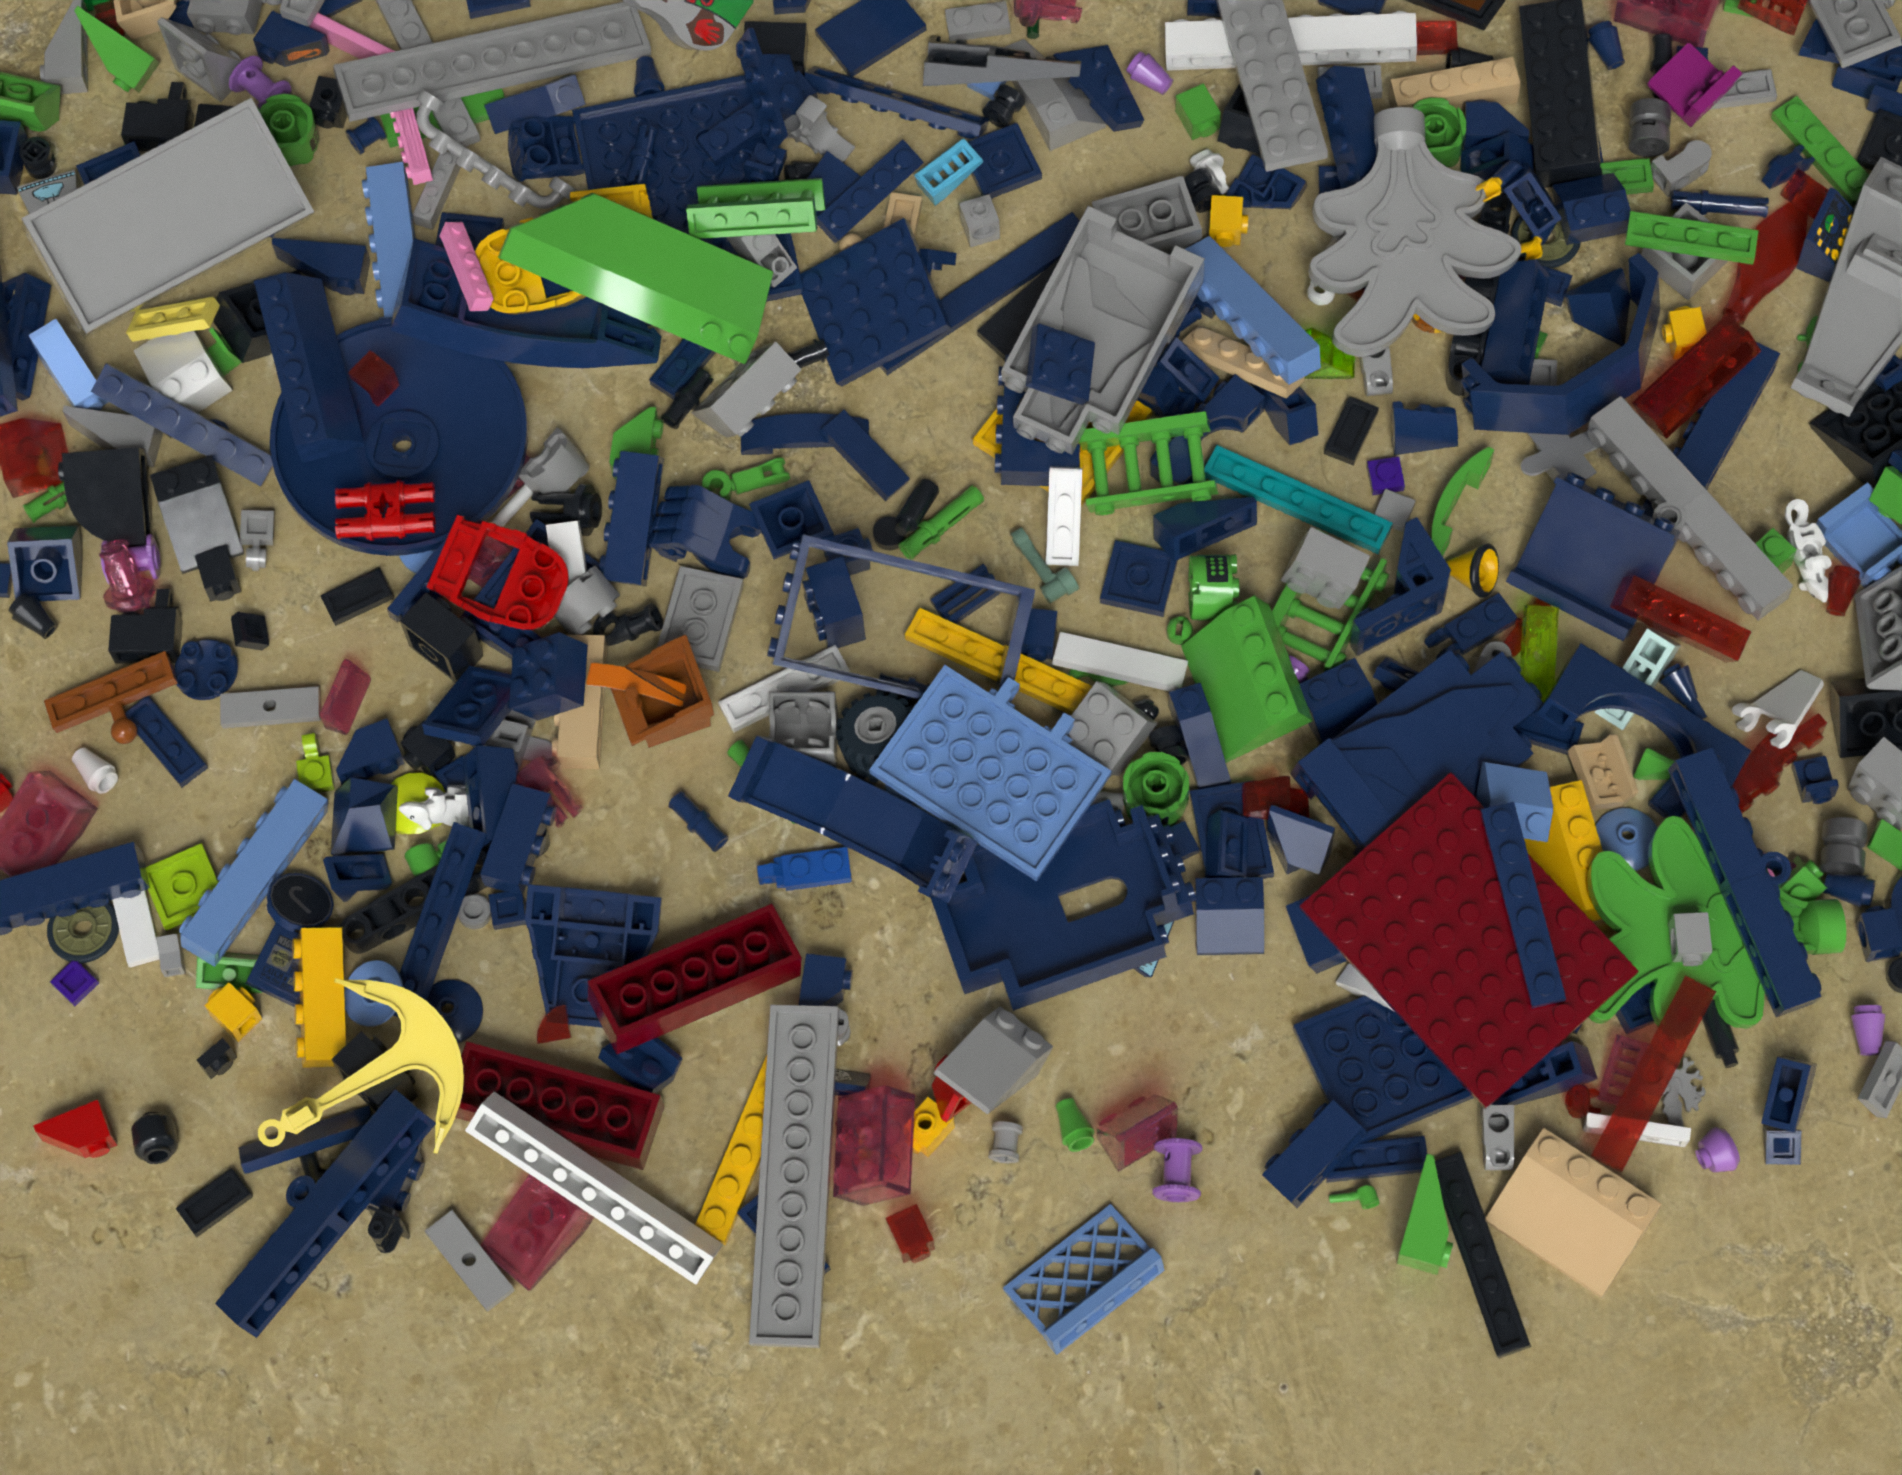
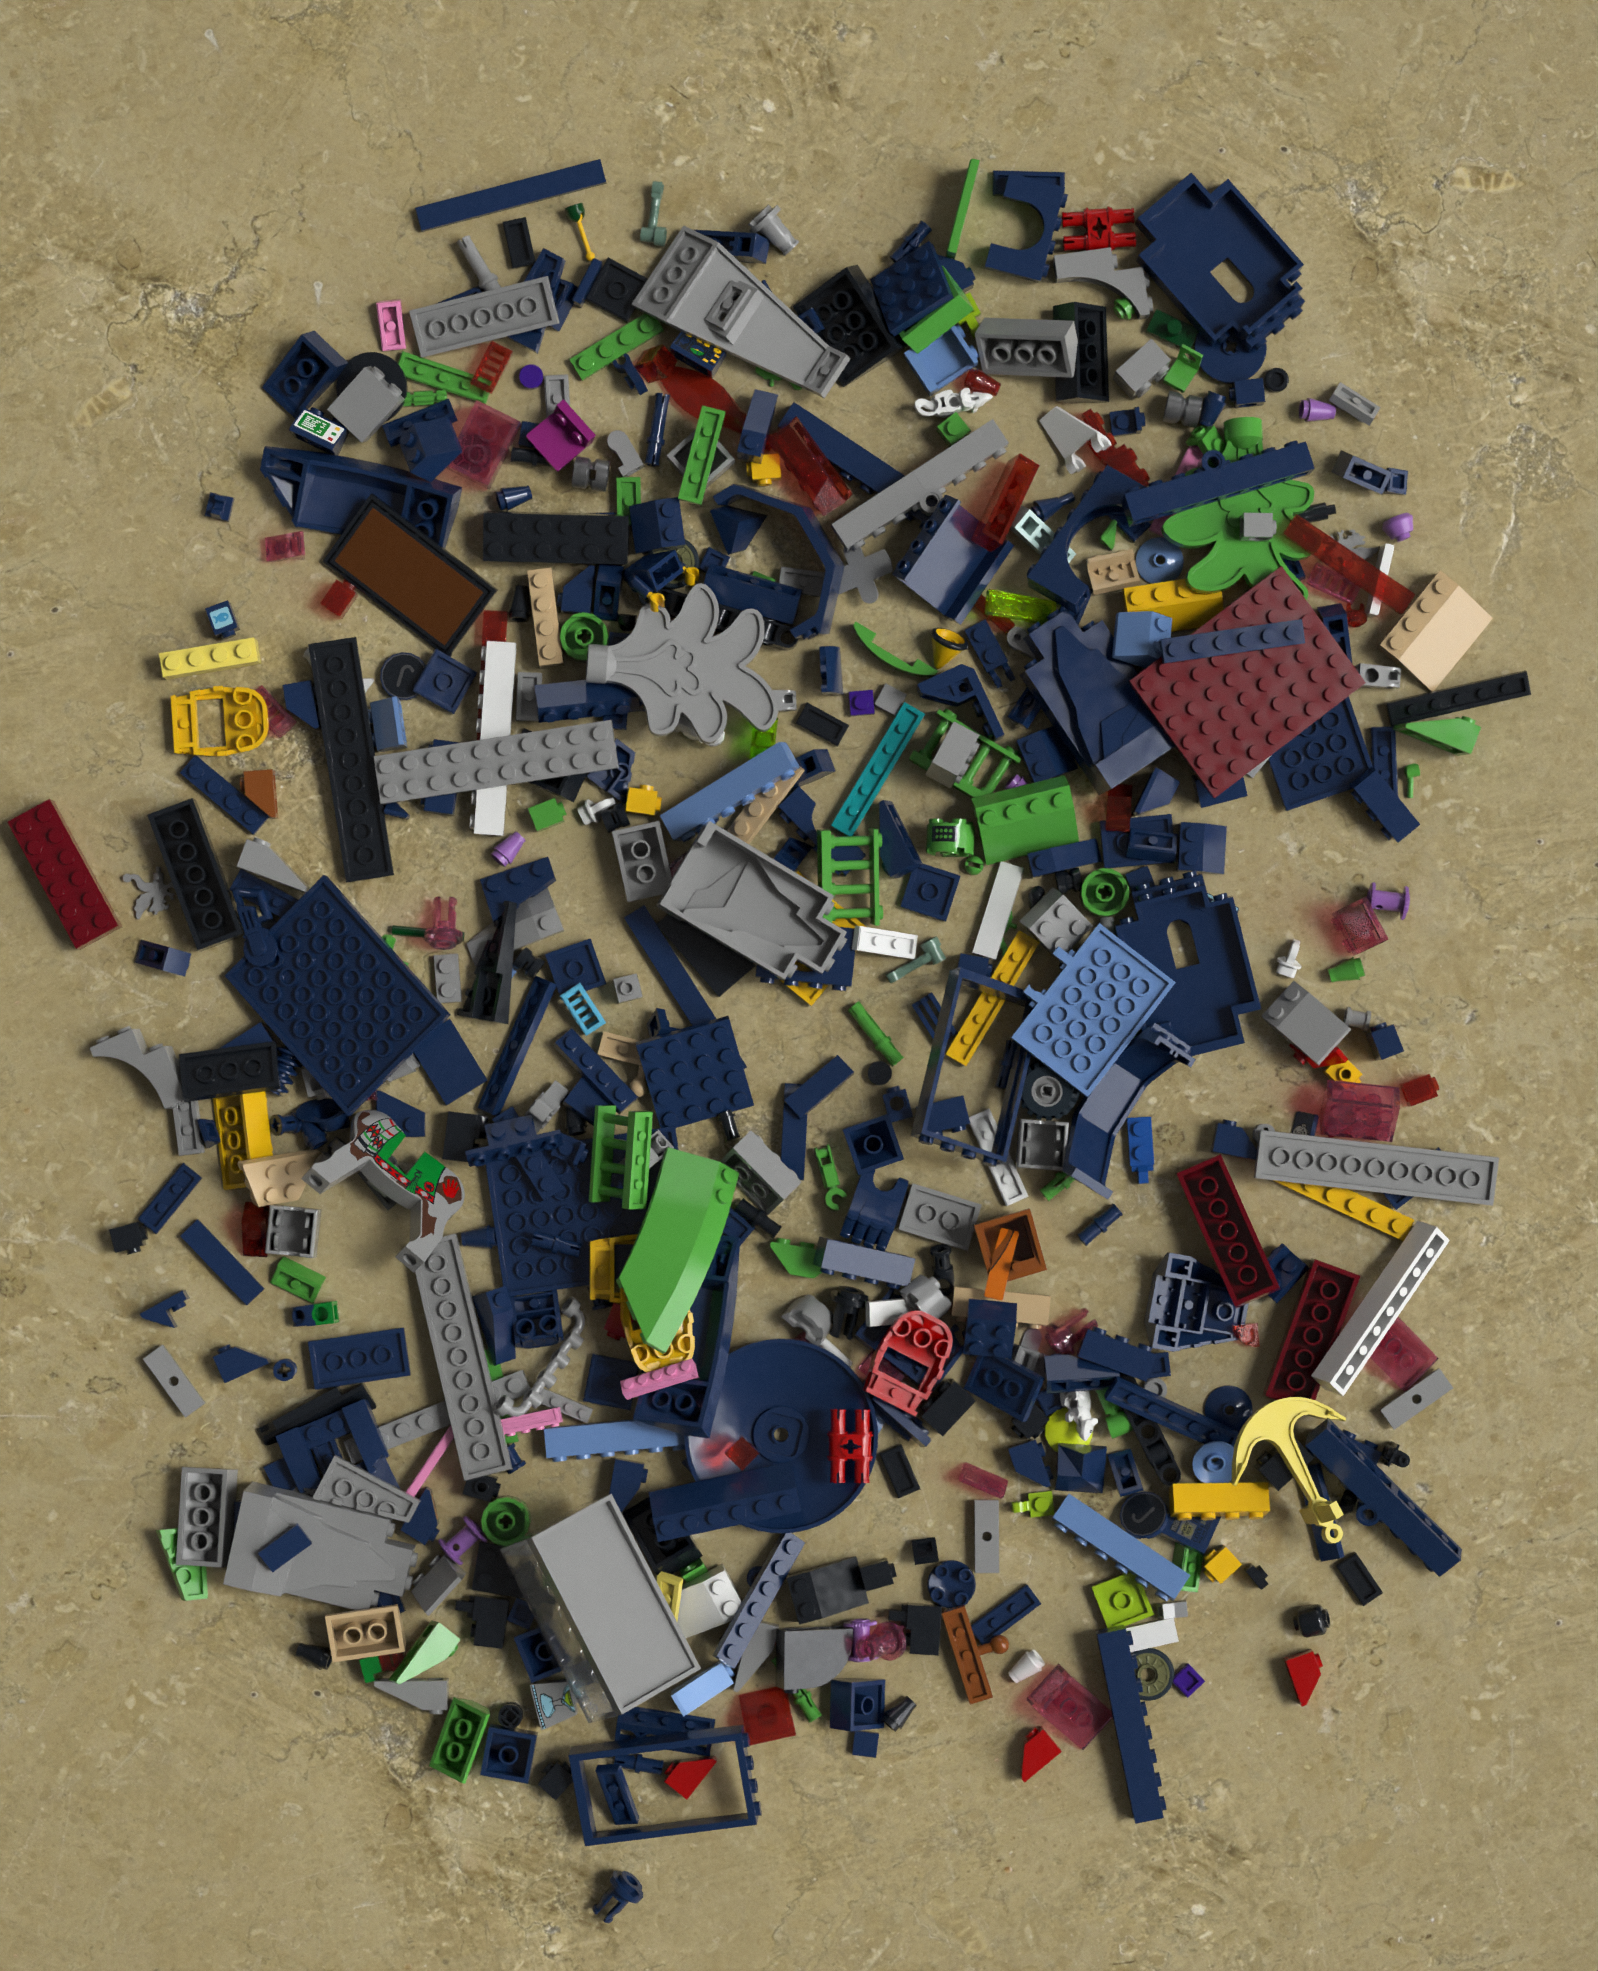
camera: 95 degrees left, 20 degrees up
(256, 530) = (841, 1545): light grey plate -> none
(916, 506) = (864, 1051): black cylinder -> none
(975, 1173) = (1384, 1041): none -> dark blue brick
(1060, 364) = (781, 935): dark blue plate -> none
(1077, 1047) = (1288, 965): none -> white piece
(1101, 1301) = (1474, 961): medium blue fence -> none
(1188, 370) = (772, 838): dark blue slope -> none
(1748, 307) = (757, 426): none -> dark blue slope
(1767, 55) = (531, 376): none -> dark purple tile

